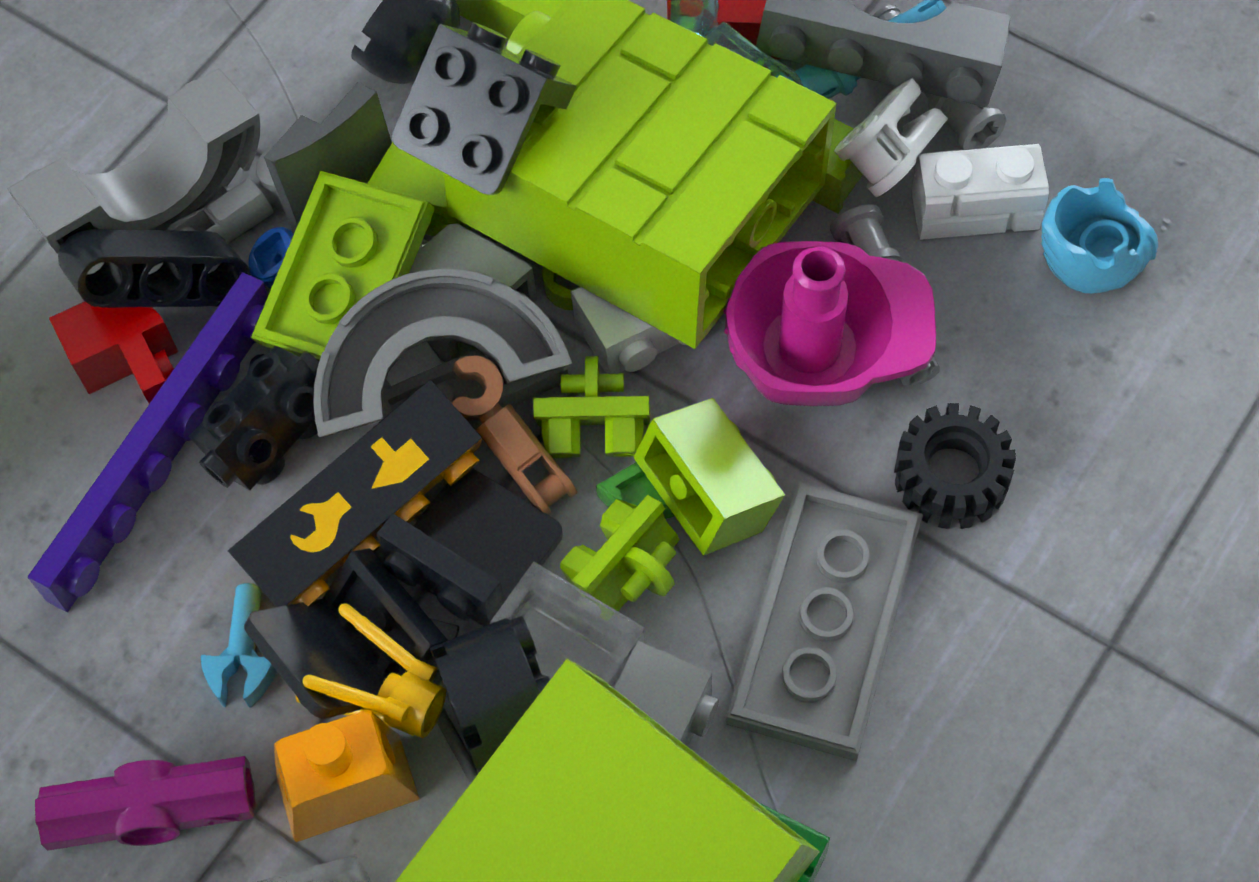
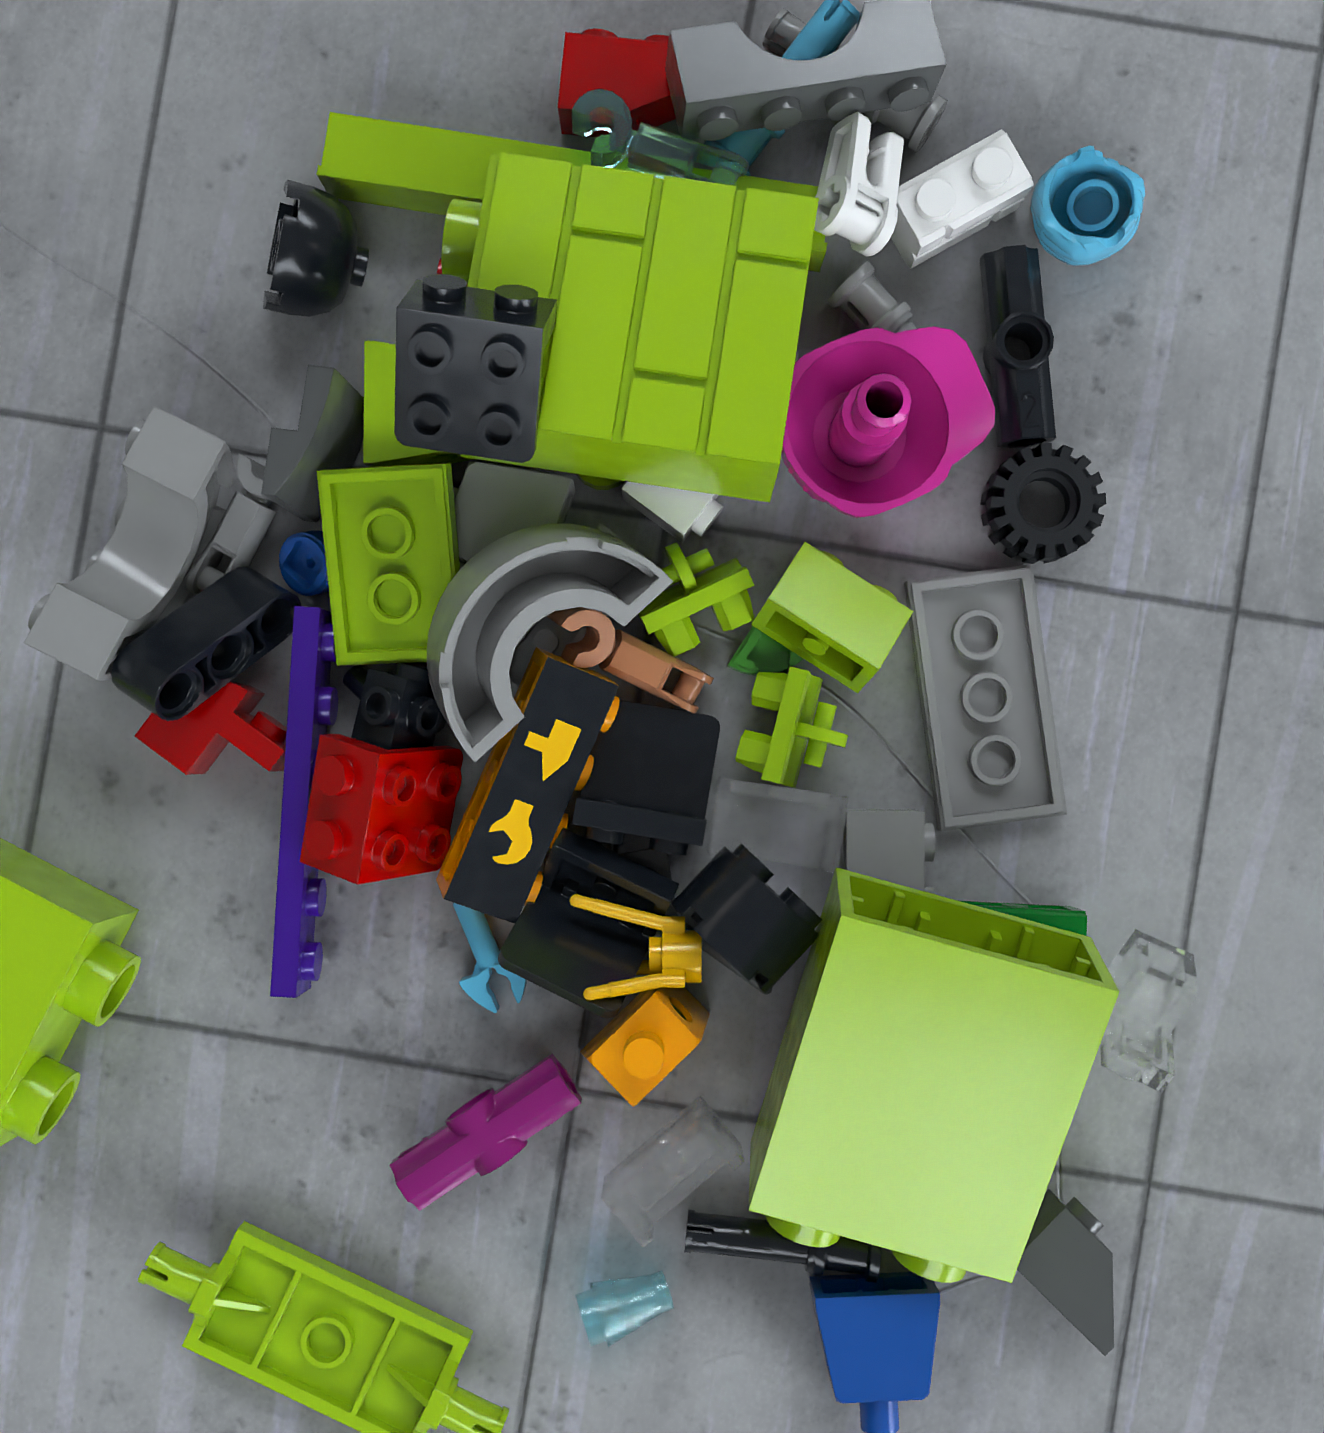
camera: 30 degrees left, 25 degrees up
(221, 458) = (380, 809): none -> red bracket
(995, 301) = (1016, 310): none -> black piece

